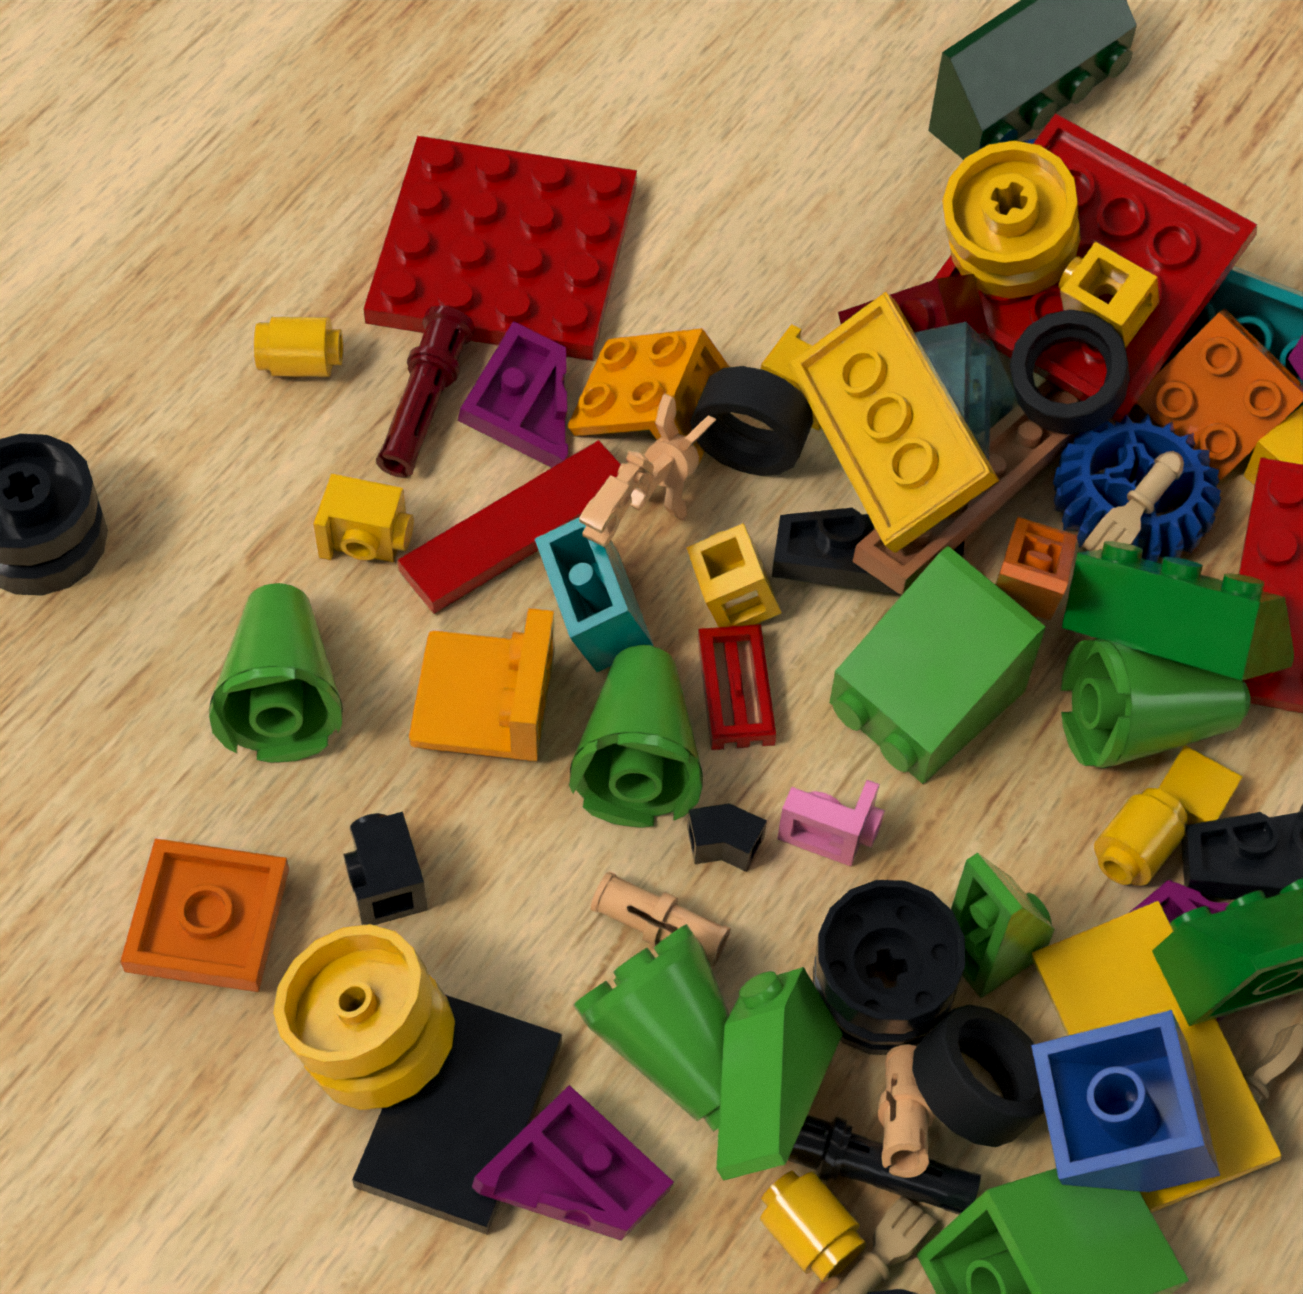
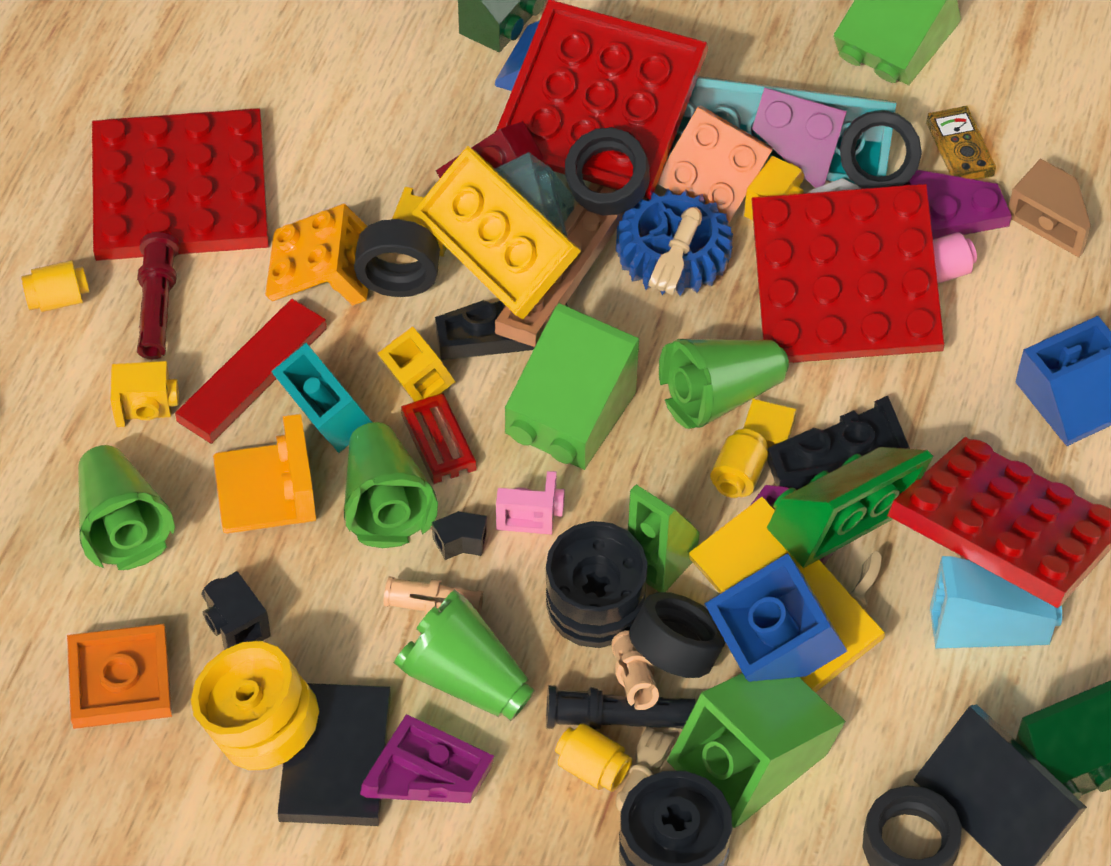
camera: 15 degrees left, 5 degrees down
(522, 396) = (228, 282): magenta wing -> none
(665, 463) = (344, 301): light nougat piece -> none
(771, 1069) = (538, 662): bright green slope -> none
(1012, 218) = (539, 77): yellow wheel -> none
(1037, 566) = (622, 304): orange slope -> none
(1109, 273) = (618, 98): yellow brick -> none
(1178, 612) = (724, 307): green slope -> none

